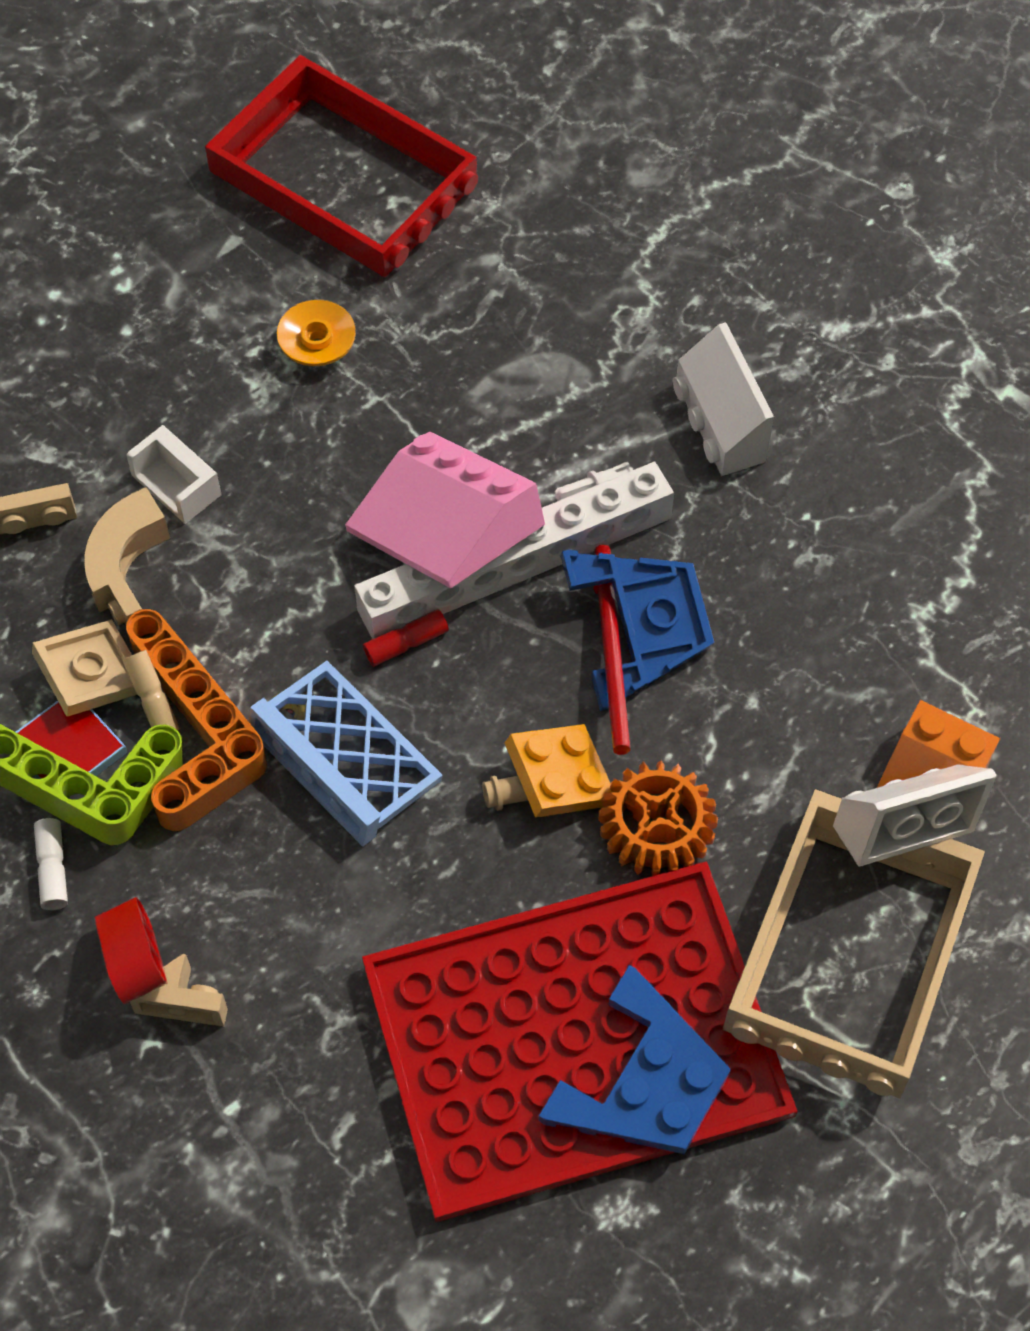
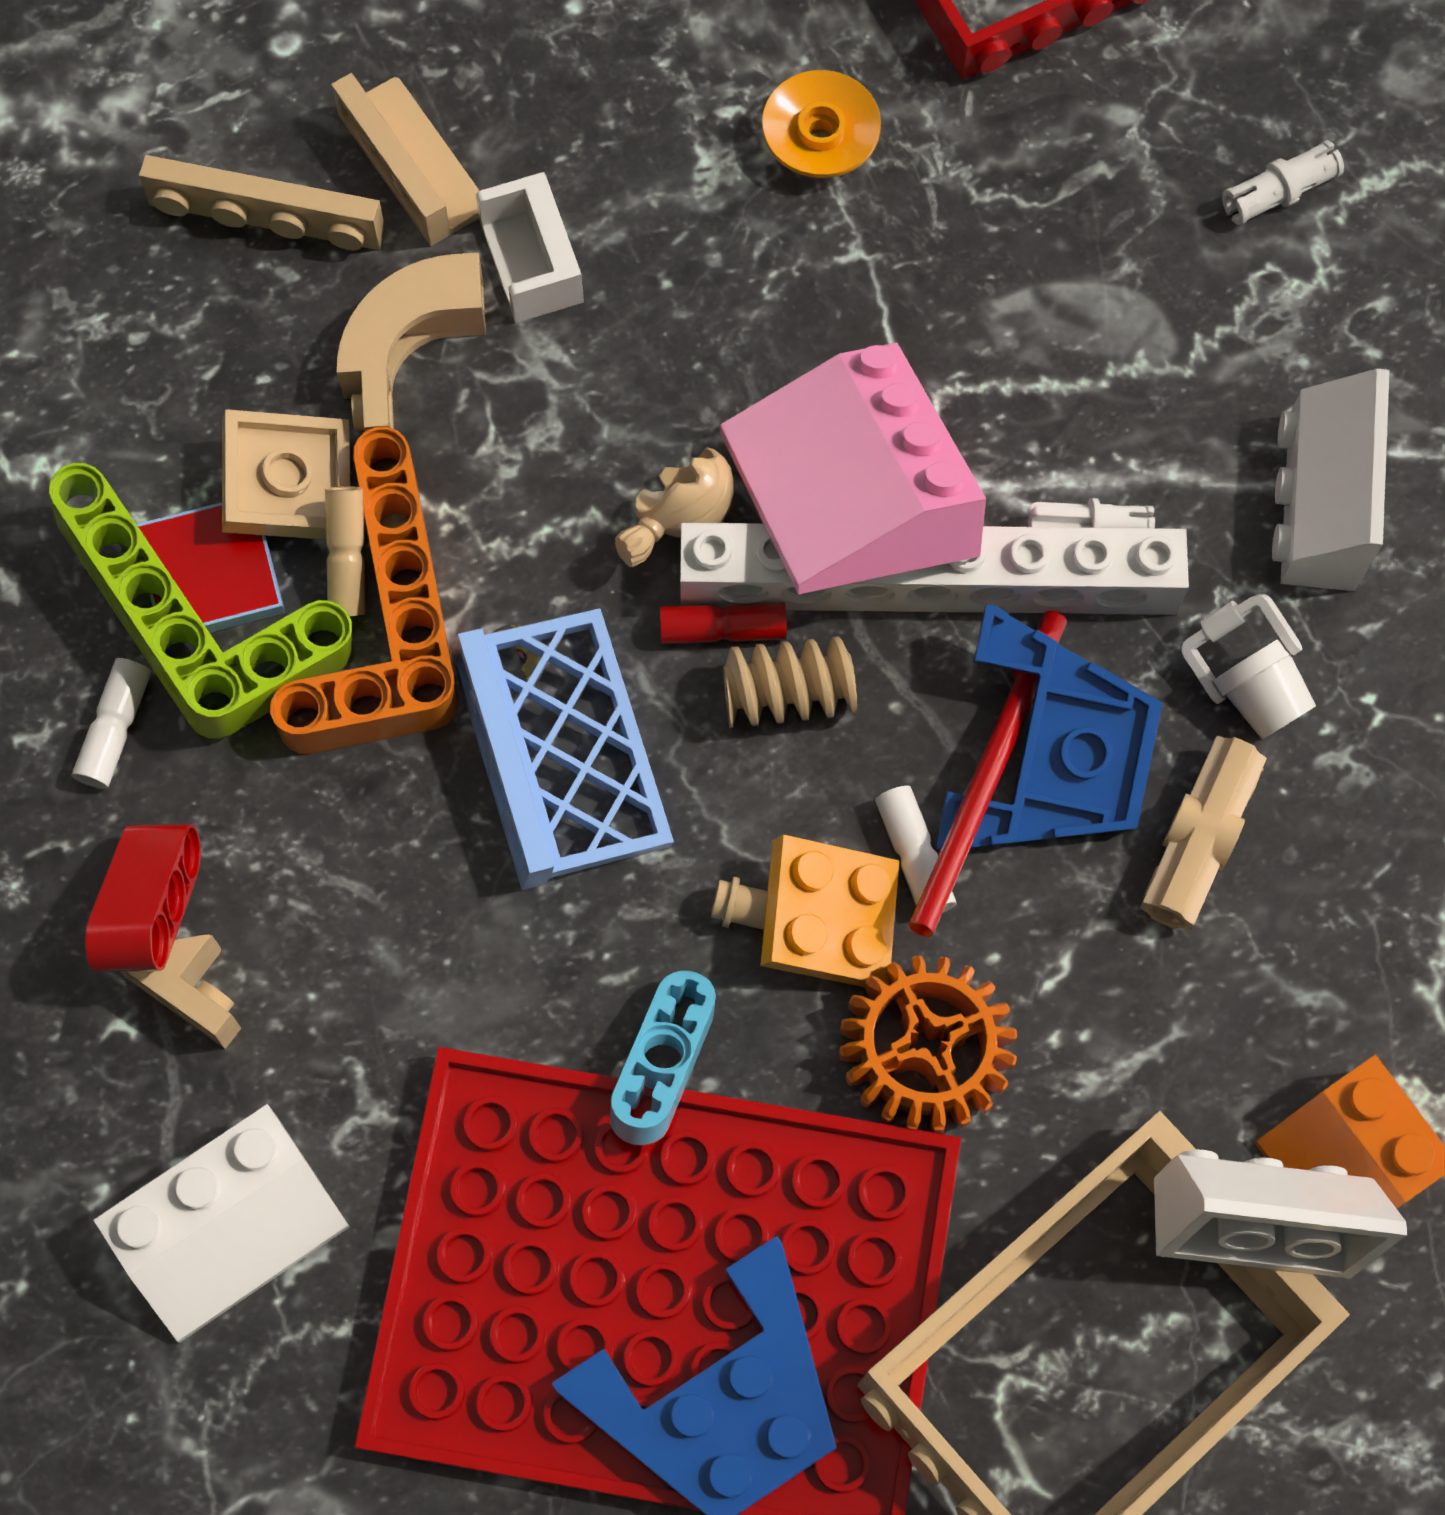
camera: 25 degrees right, 10 degrees up
(68, 455) = (408, 155): none -> tan panel
(279, 1125) = (221, 1223): none -> white slope
(351, 567) = (690, 495): none -> tan hair
(464, 648) = (789, 680): none -> tan piece
(514, 909) = (666, 1082): none -> medium azure beam
(584, 710) = (909, 838): none -> white piece
(604, 257) = (1283, 182): none -> white pin
(743, 532) = (1264, 685): none -> white piece
(753, 629) = (1203, 833): none -> tan piece

